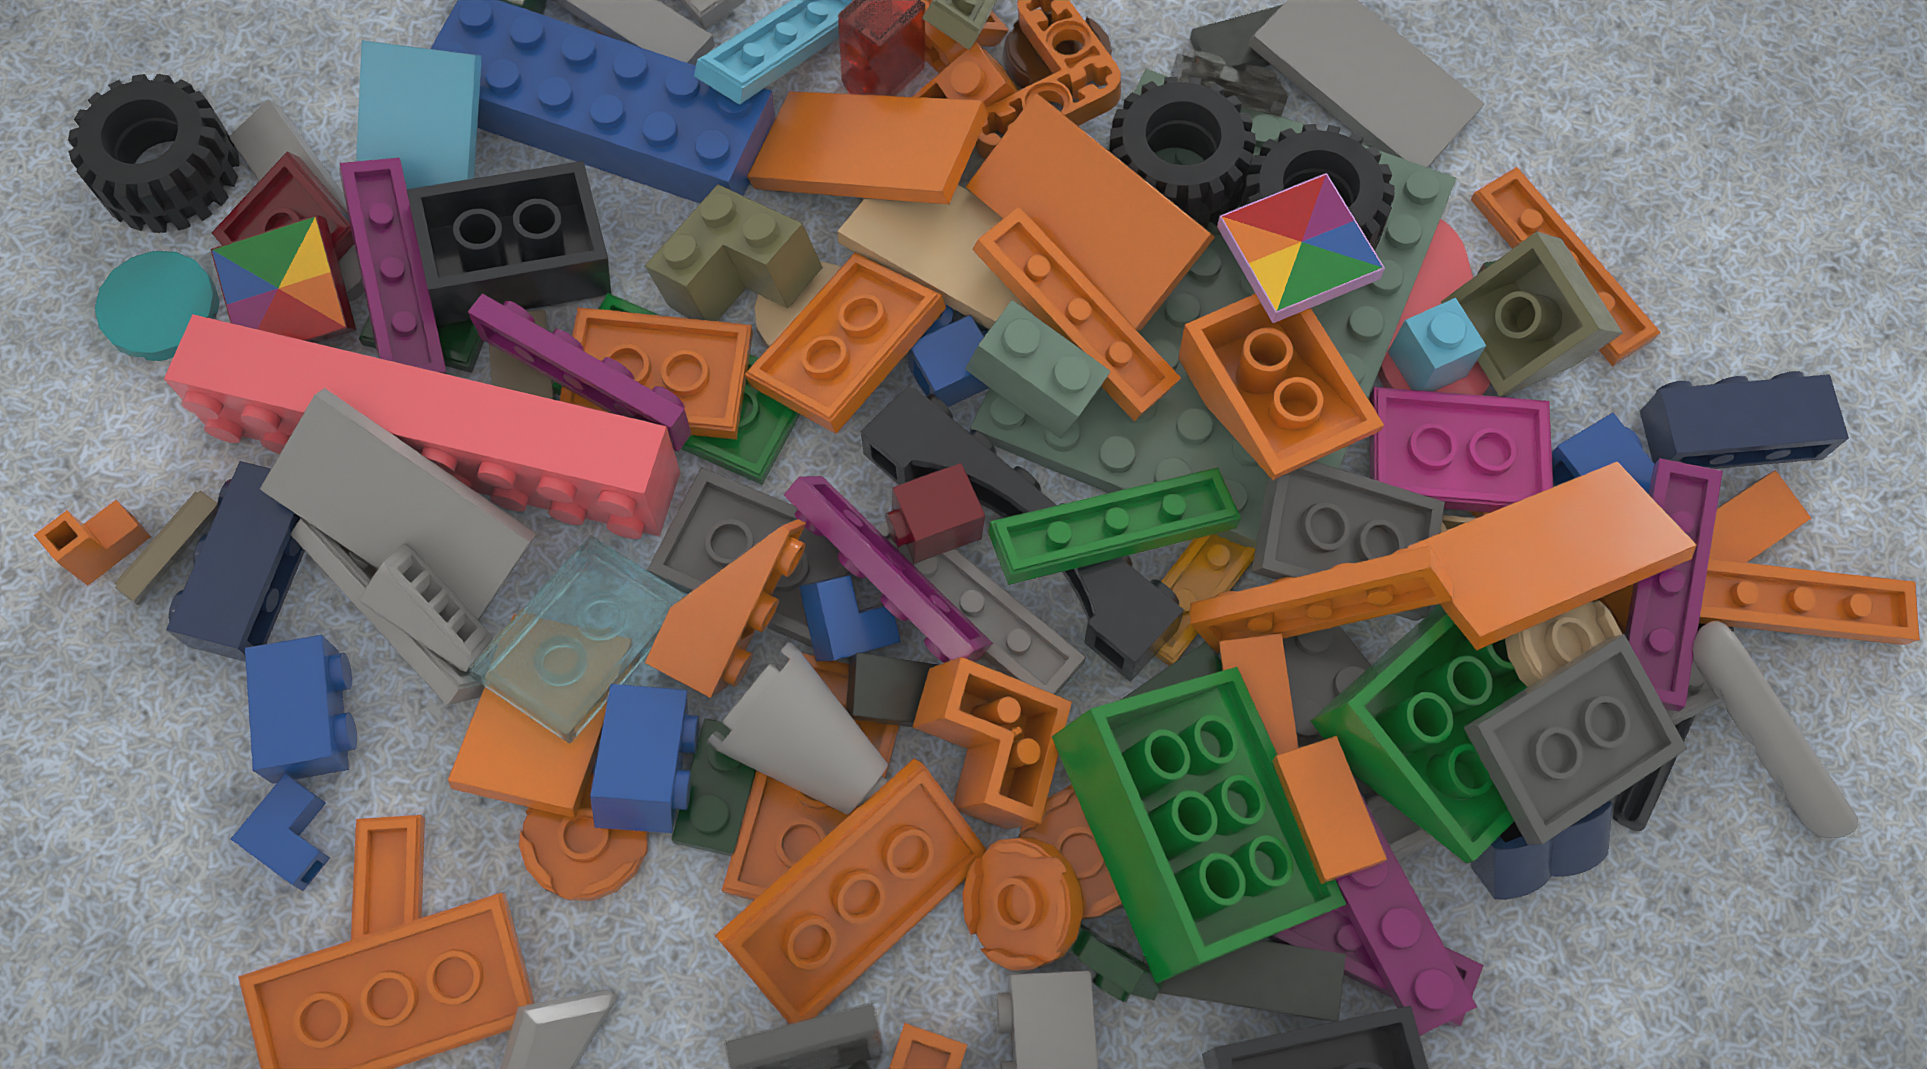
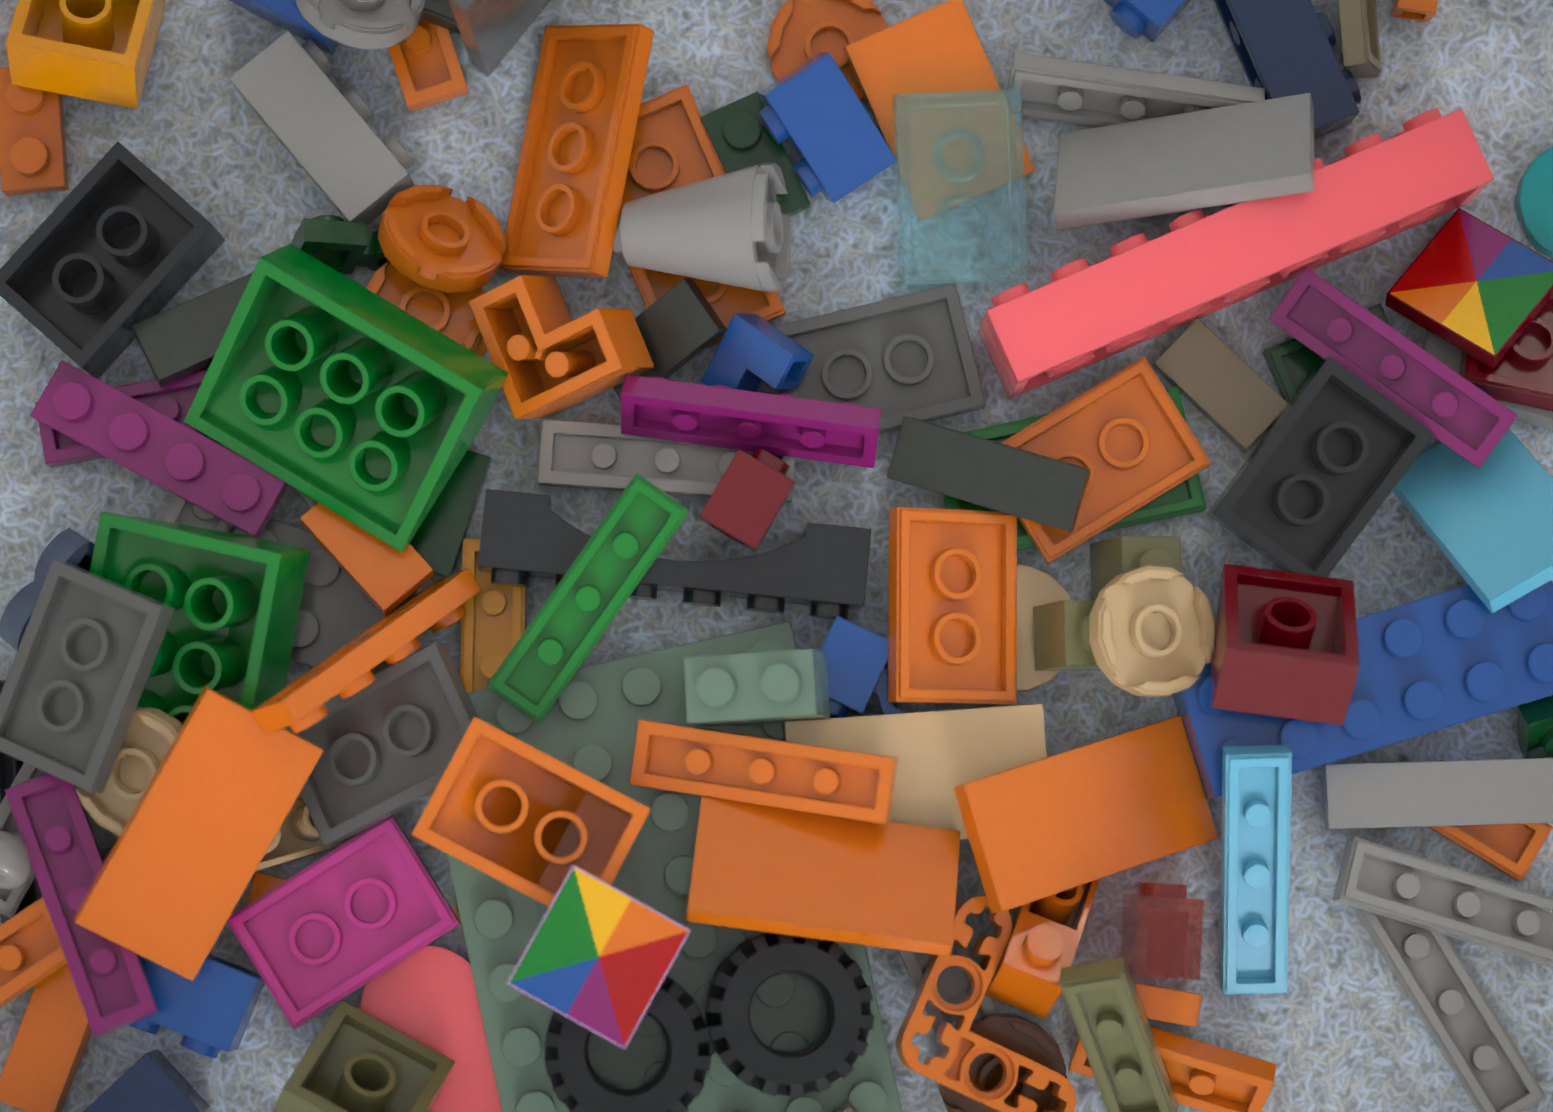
camera: 145 degrees right, 15 degrees up
(423, 607) = (1112, 90): light grey slope -> none
(565, 362) = (1117, 397): magenta plate -> none
(637, 126) = (1285, 645): none -> dark red slope
(712, 626) = (860, 282): orange slope -> none
(721, 204) = (1152, 631): none -> tan tile
(742, 407) = (988, 473): none -> pearl dark grey tile
(1329, 809) = (245, 478): orange tile -> none
(1436, 347) = (425, 998): medium azure brick -> none

